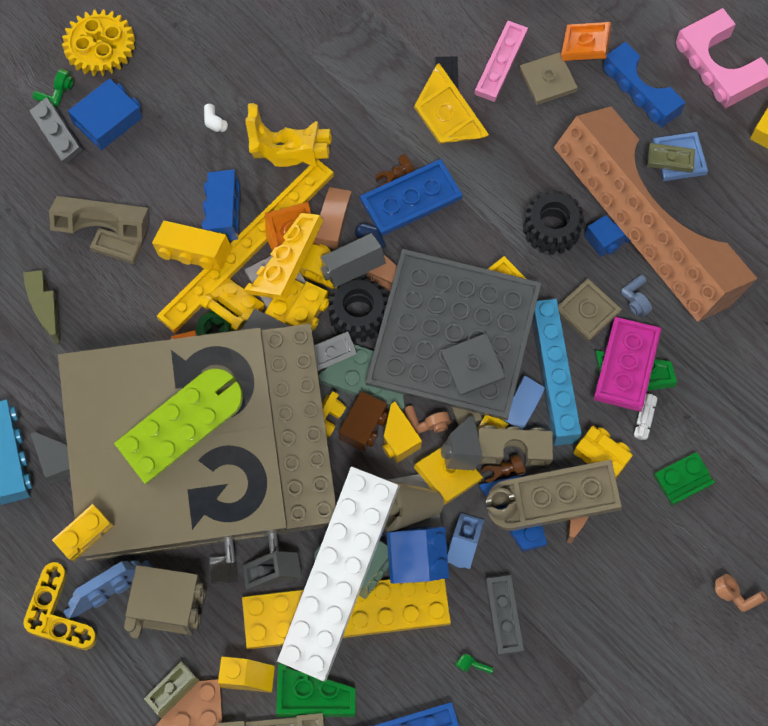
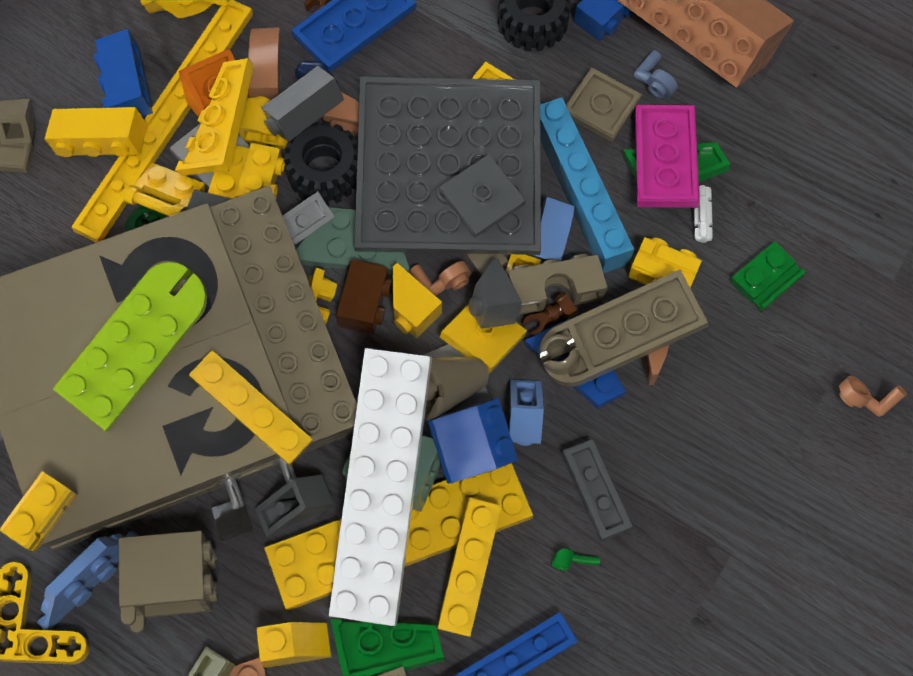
camera: 15 degrees left, 0 degrees up
(255, 491) = (251, 407): none -> yellow plate
(391, 650) = (469, 567): none -> yellow plate

